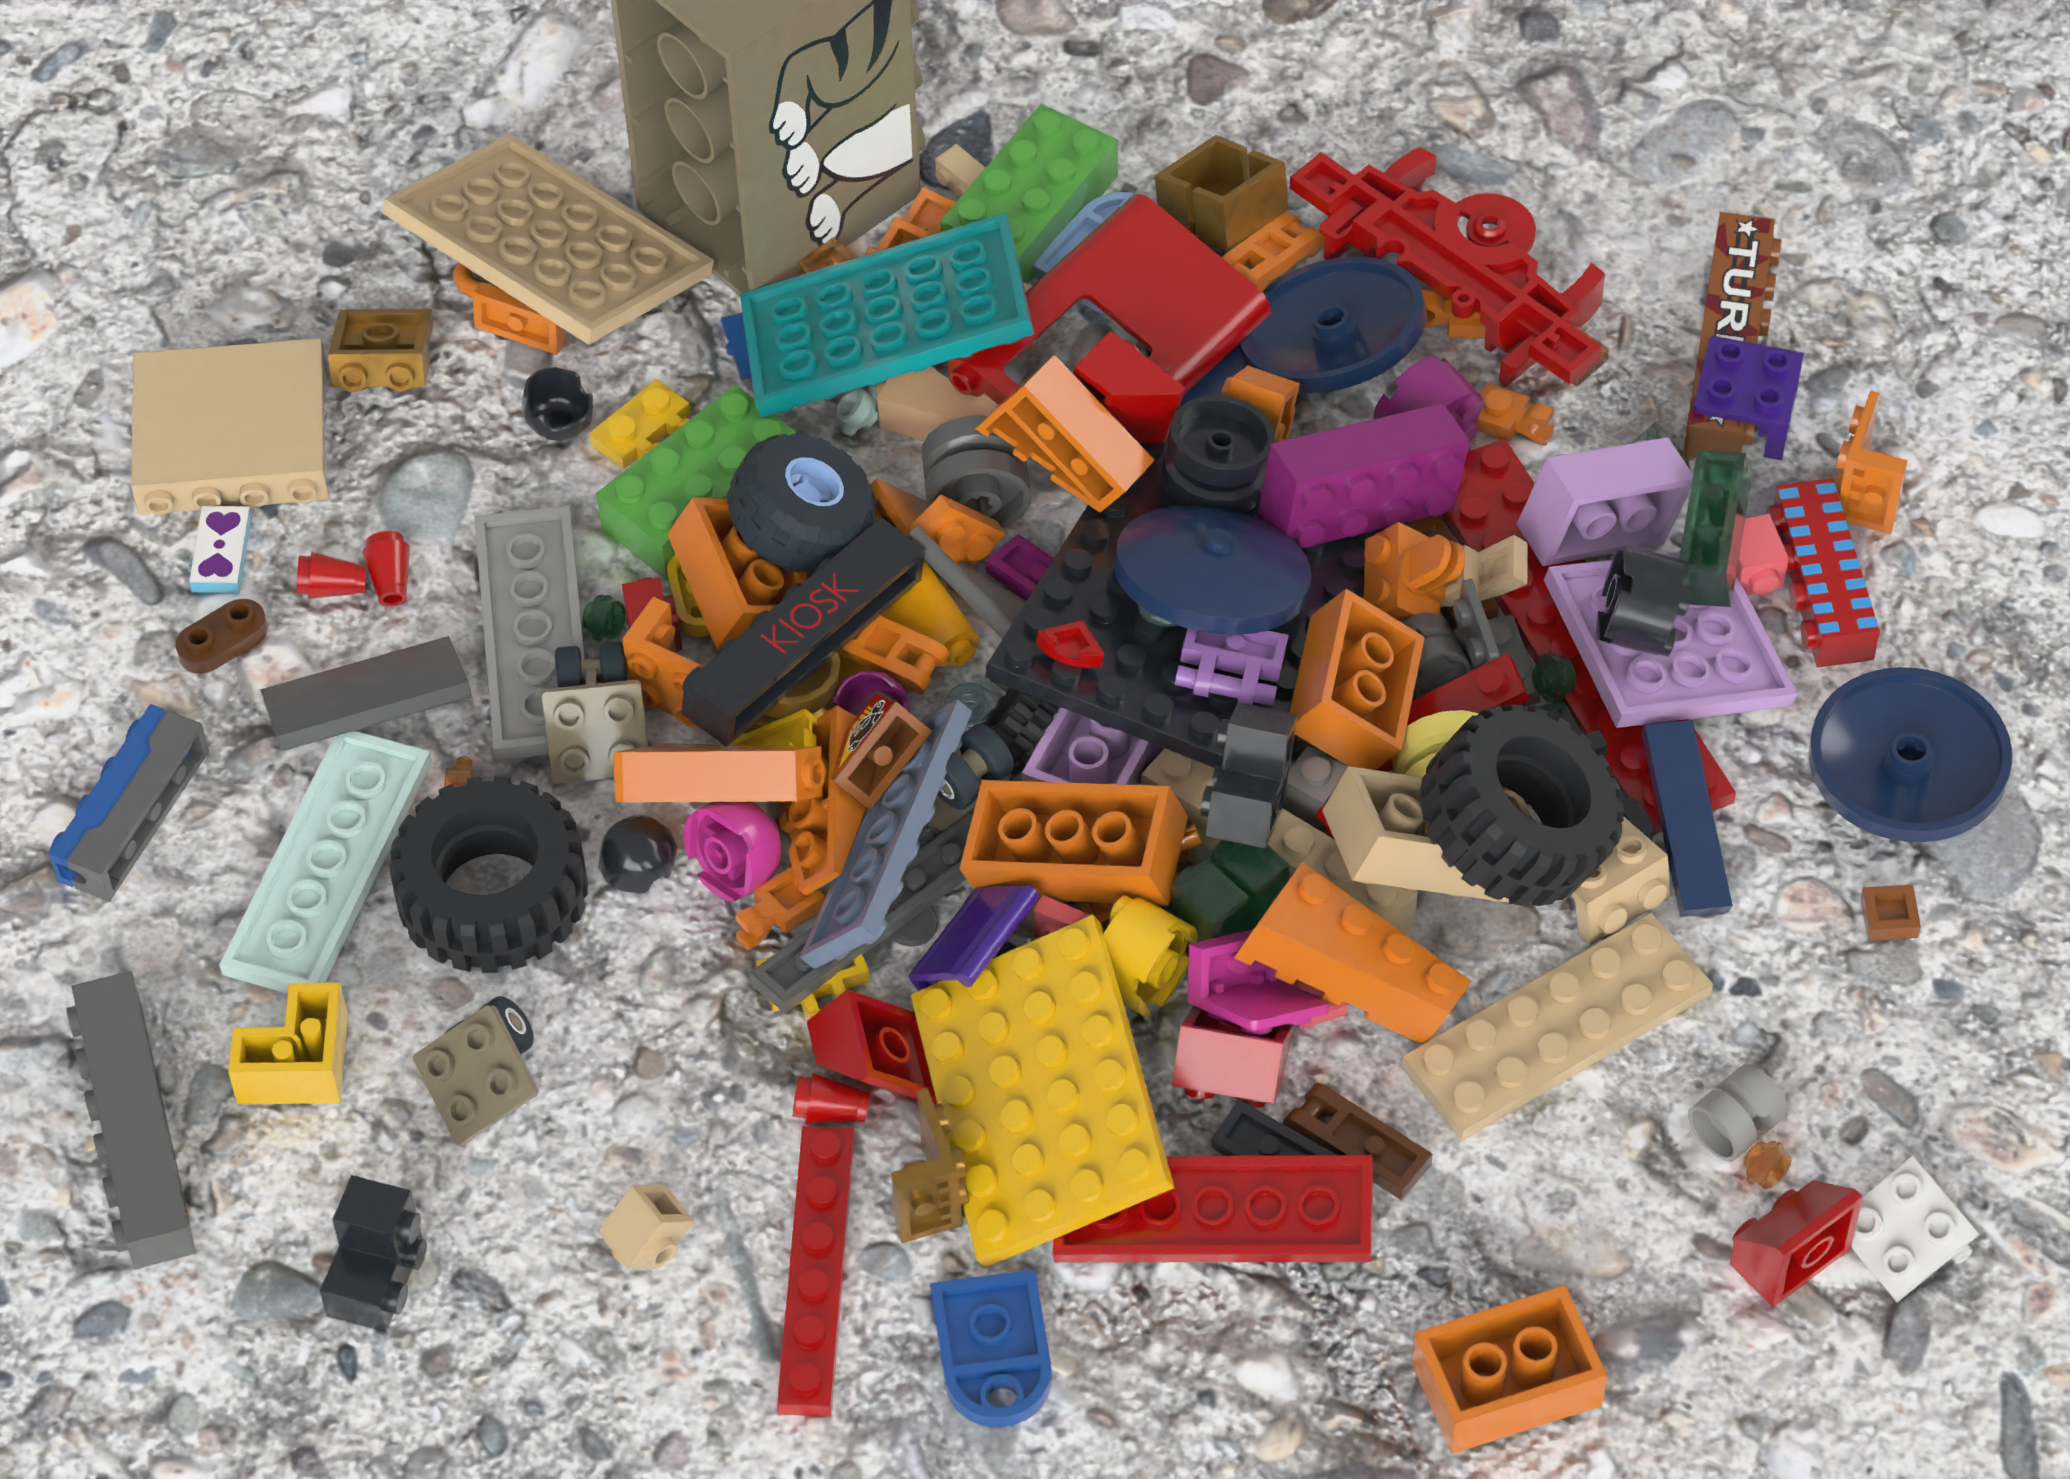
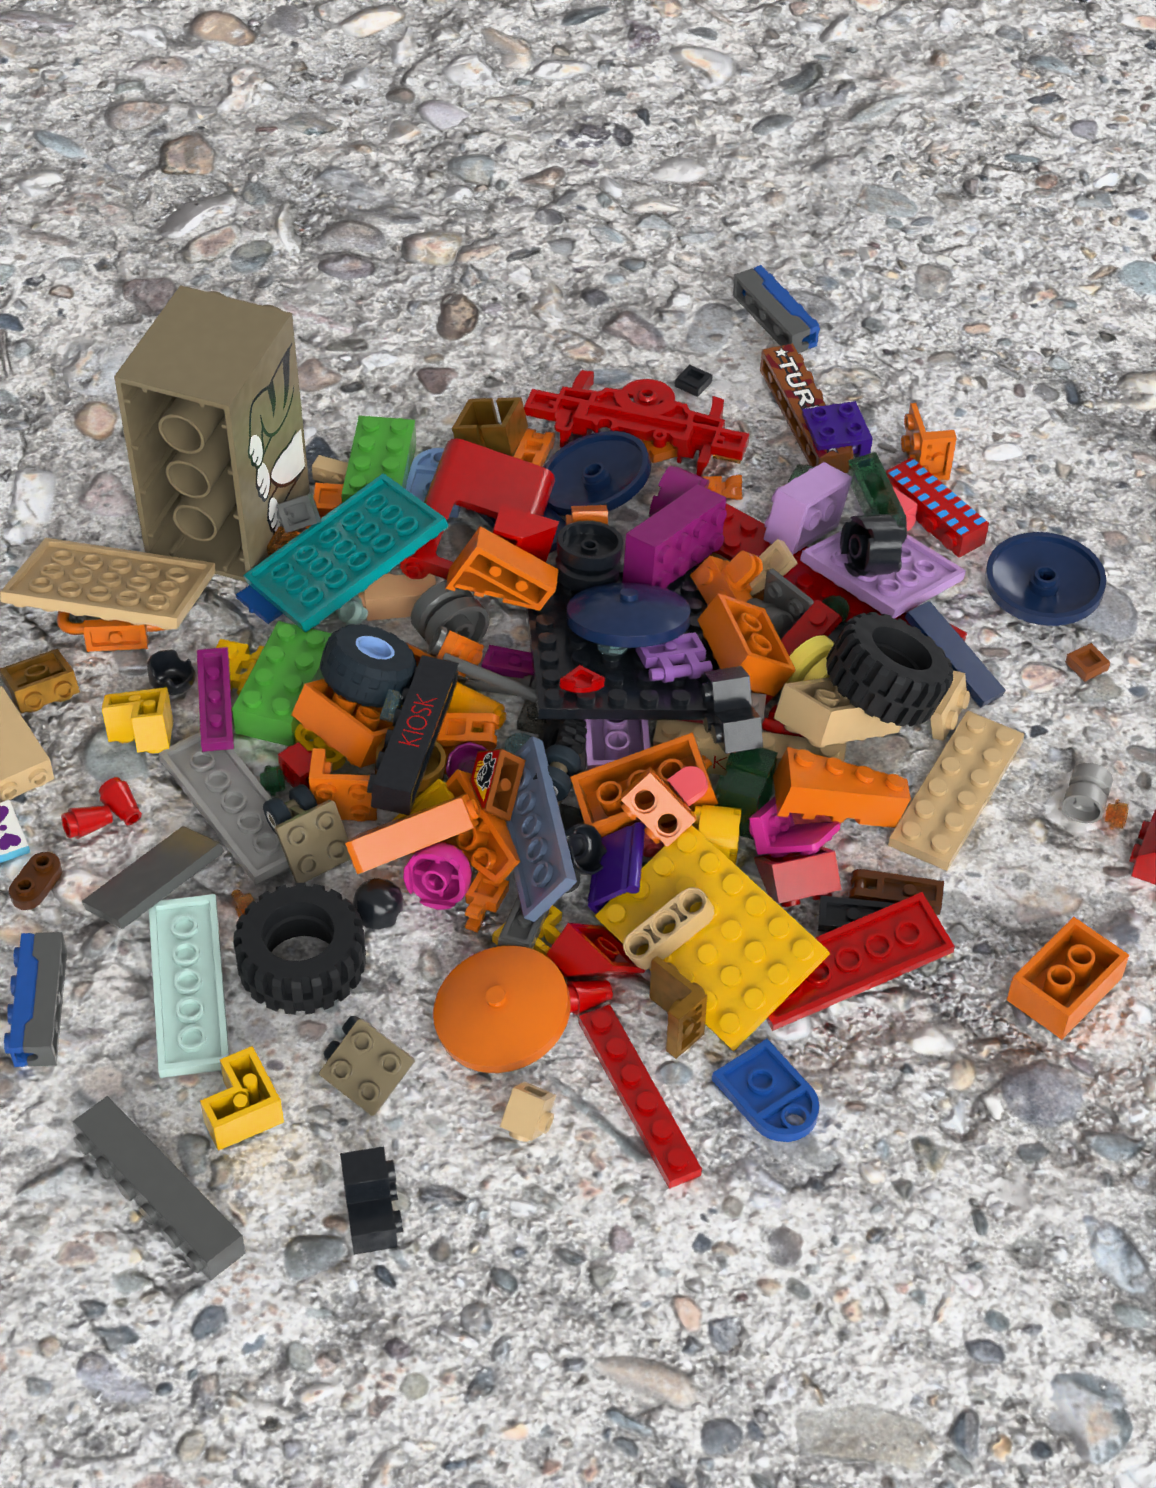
camera: 30 degrees left, 5 degrees down
(474, 458) = (139, 717): none -> yellow brick
(585, 469) = (215, 699): none -> magenta plate
(702, 1072) = (501, 1009): none -> orange dish
(795, 572) = (392, 701): none -> clear light blue tile
(858, 227) = (298, 513): none -> dark grey bracket
(924, 502) = (437, 640): none -> dark grey piece
(936, 893) = (585, 848): none -> black hair
(999, 1062) = (676, 912): none -> tan beam
(1069, 871) = (664, 802): none -> brick
(1118, 861) = (689, 784): none -> coral tile
(1596, 222) = (693, 380): none -> black tile
(1799, 150) = (775, 309): none -> dark grey piece

